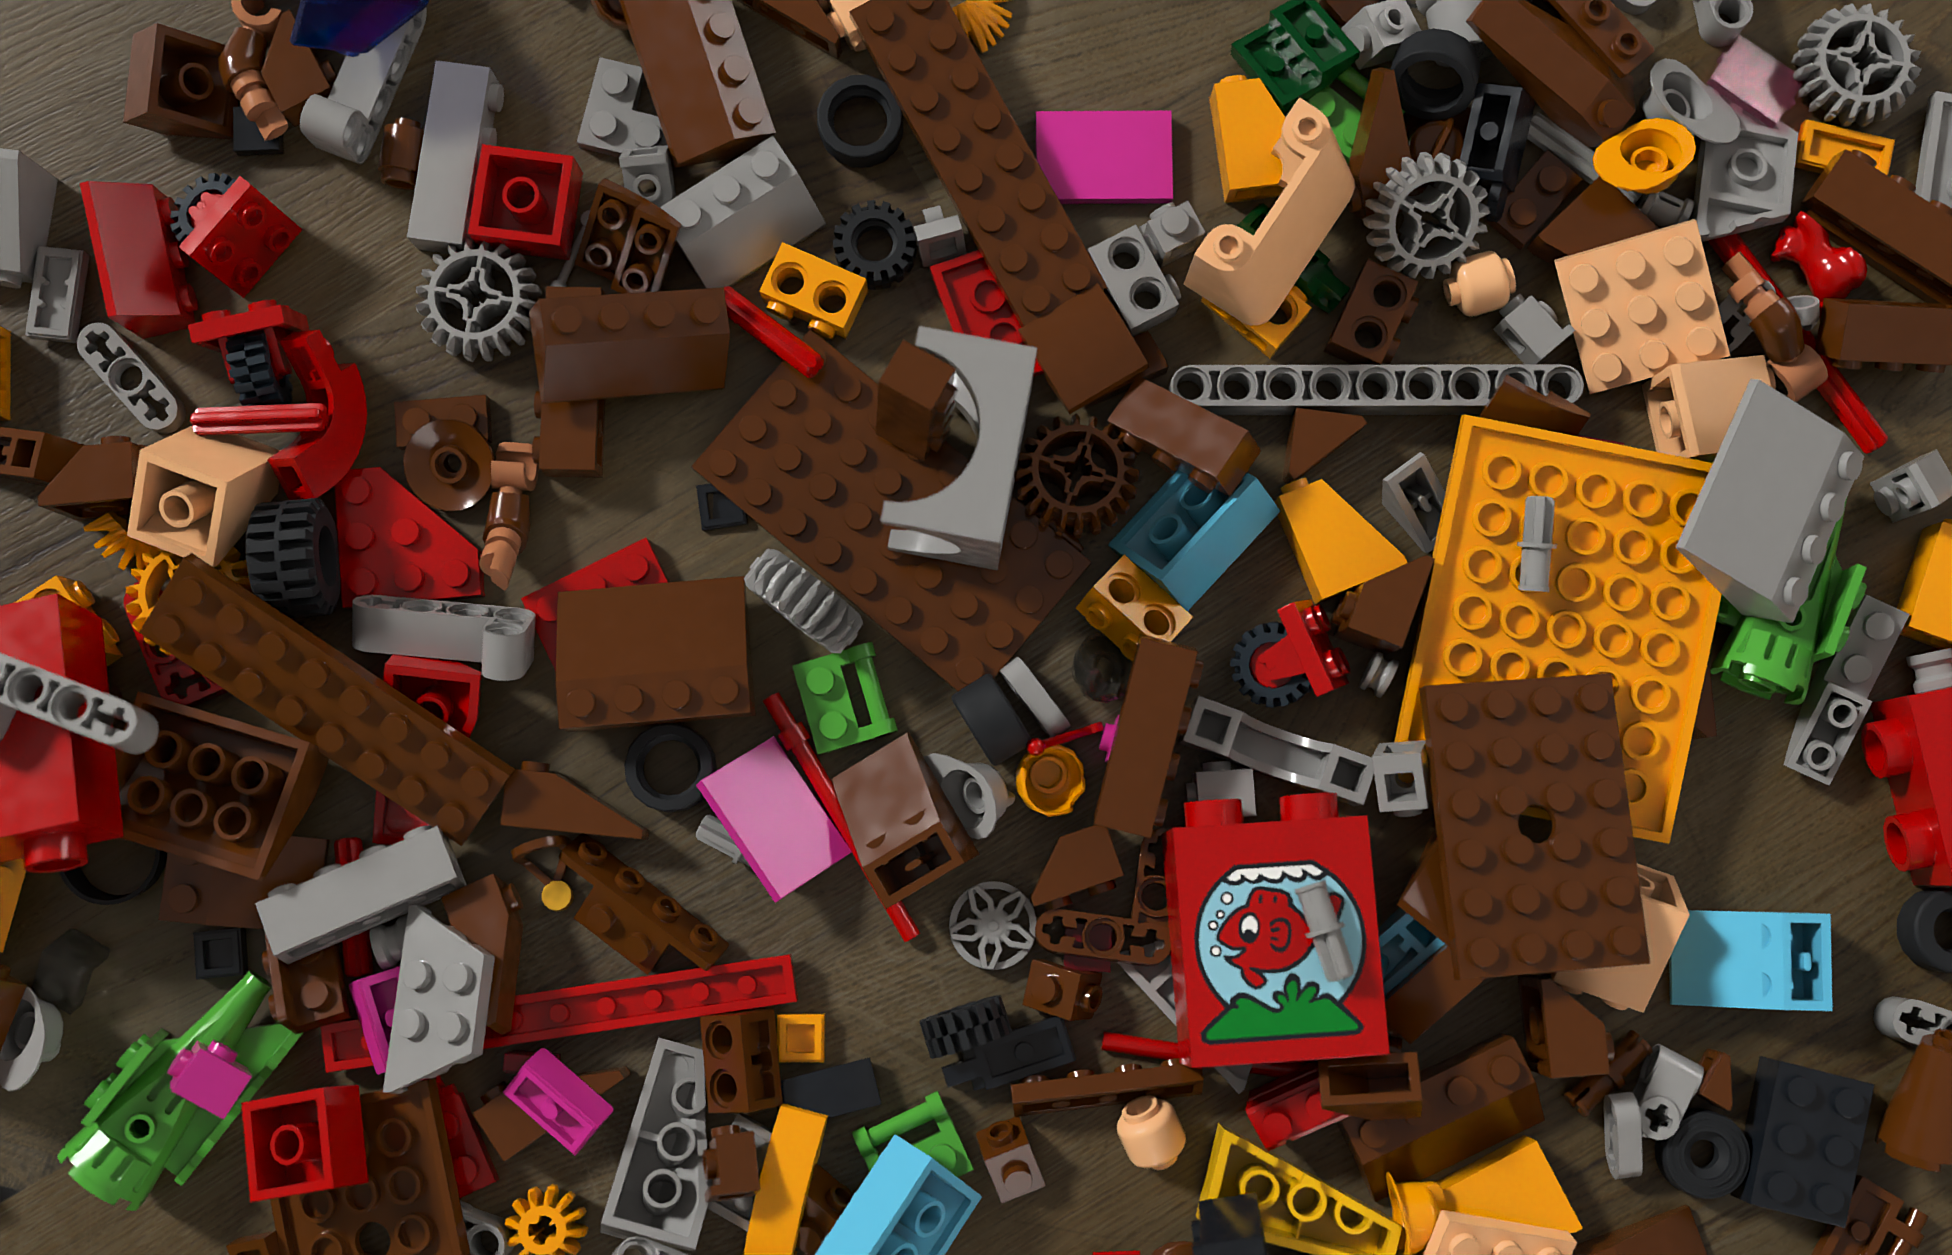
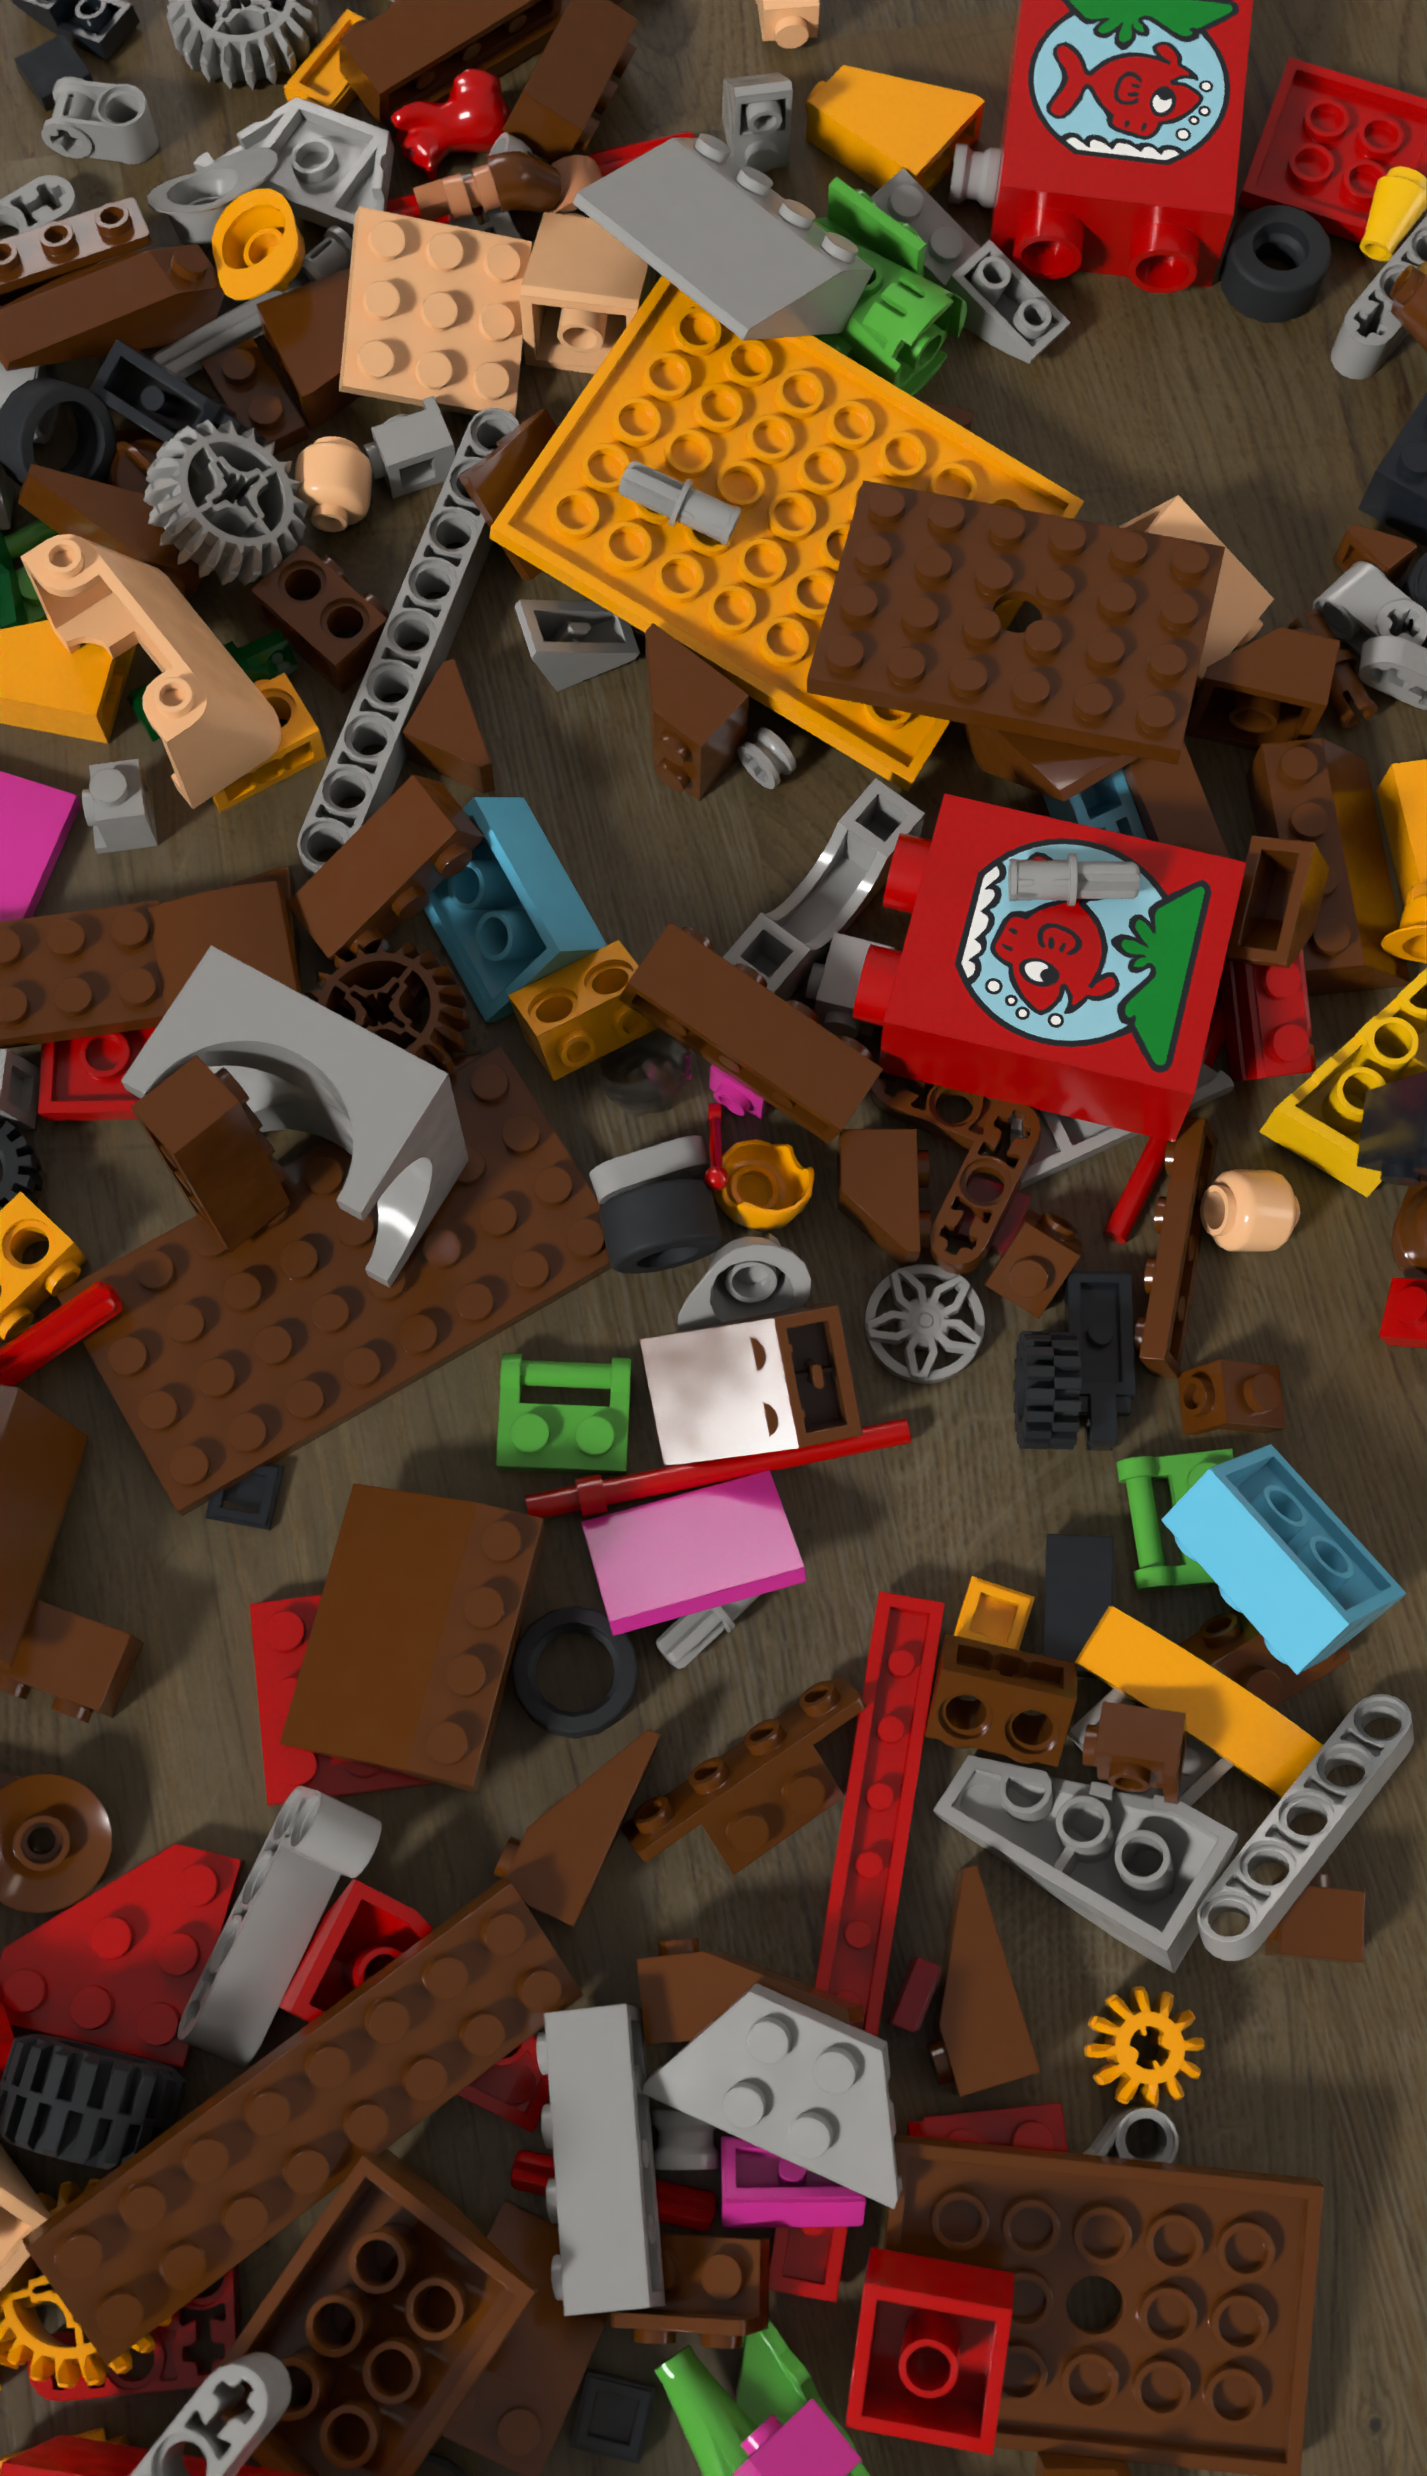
camera: 75 degrees left, 10 degrees down
(509, 511) = (140, 1779): nougat piece -> none
(556, 893) = (692, 1889): reddish brown piece -> none
(558, 1100) = (981, 1964): dark pink slope -> none
(803, 600) = (416, 1411): light grey gear -> none
(1144, 277) = (163, 858): light grey brick -> none
(1289, 658) = (712, 856): plate -> none
(1332, 540) = (583, 753): light orange slope -> none
(1392, 793) = (933, 747): light grey brick -> none
(1753, 961) = (1253, 460): medium azure slope -> none
(1755, 81) = (216, 121): clear pink piece -> none

